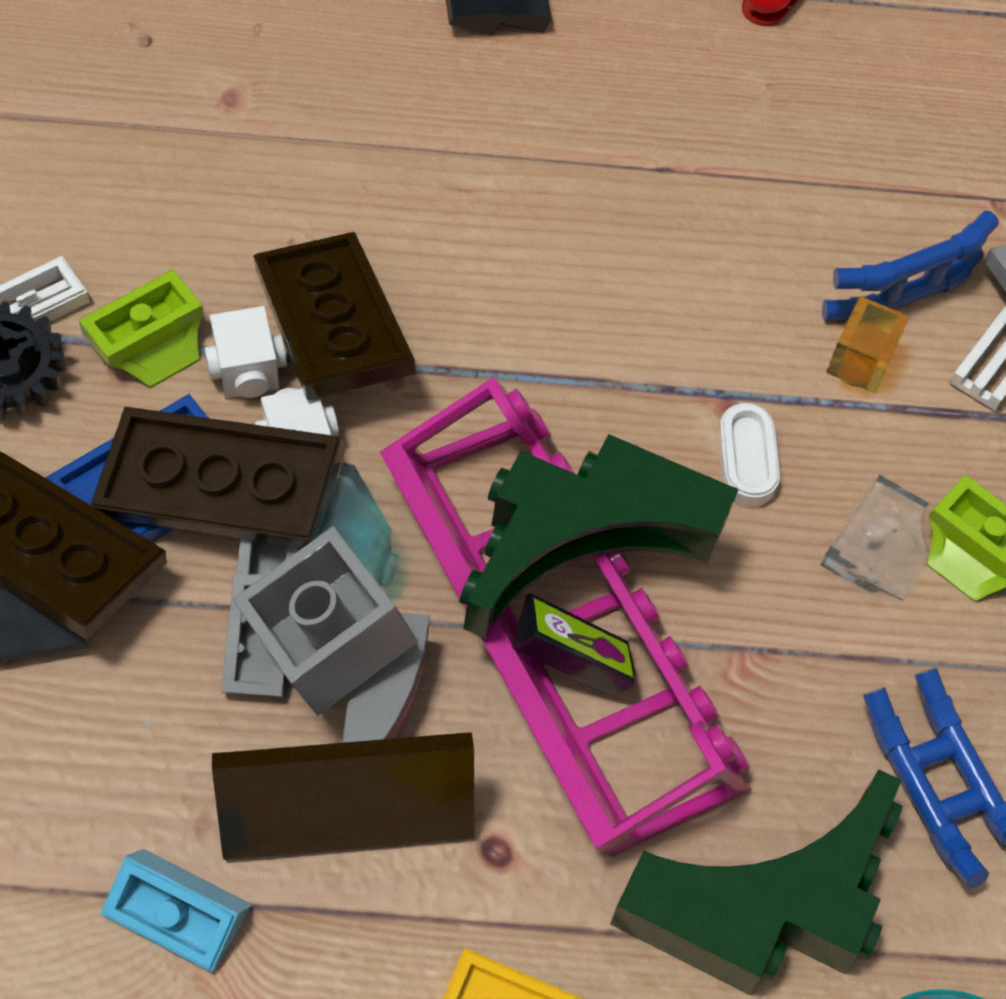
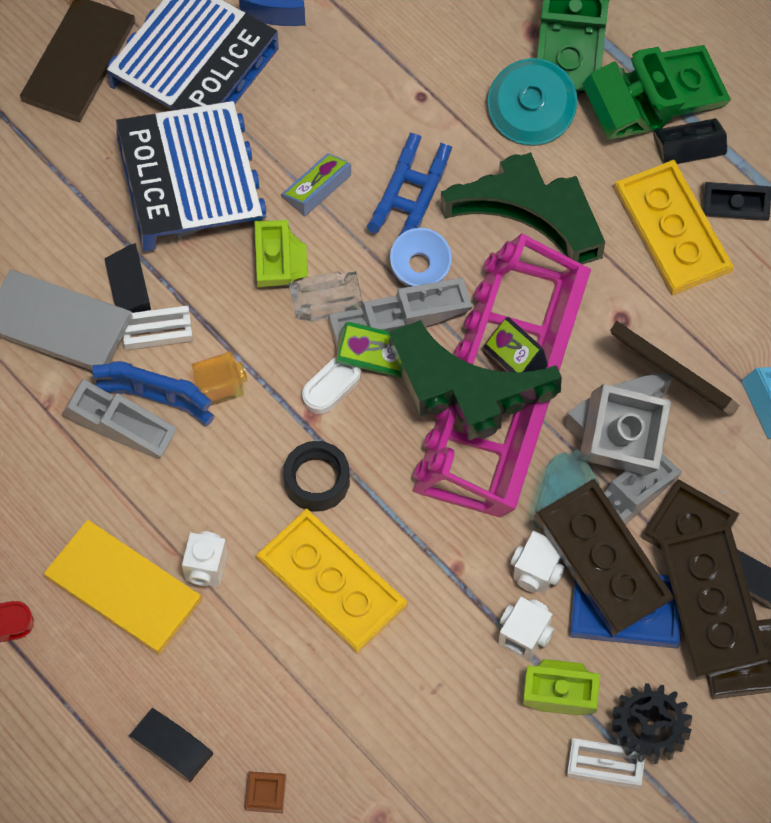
camera: 130 degrees left, 5 degrees up
(157, 642) = (686, 511): none -> dark brown tile
(333, 316) = (464, 608): dark brown tile -> none
(365, 37) = (265, 792): none -> dark orange tile
(512, 257) = (331, 580): none -> yellow tile
(651, 302) = (316, 451): none -> black tyre
(656, 161) = (205, 559): none -> white brick
(707, 98) = (123, 587): none -> yellow tile
(759, 507) = (366, 349): none -> slope
(767, 596) = (423, 302): none -> light grey slope
(822, 651) = (425, 243): none -> light blue piece
(906, 223) = (118, 419): none -> light grey slope

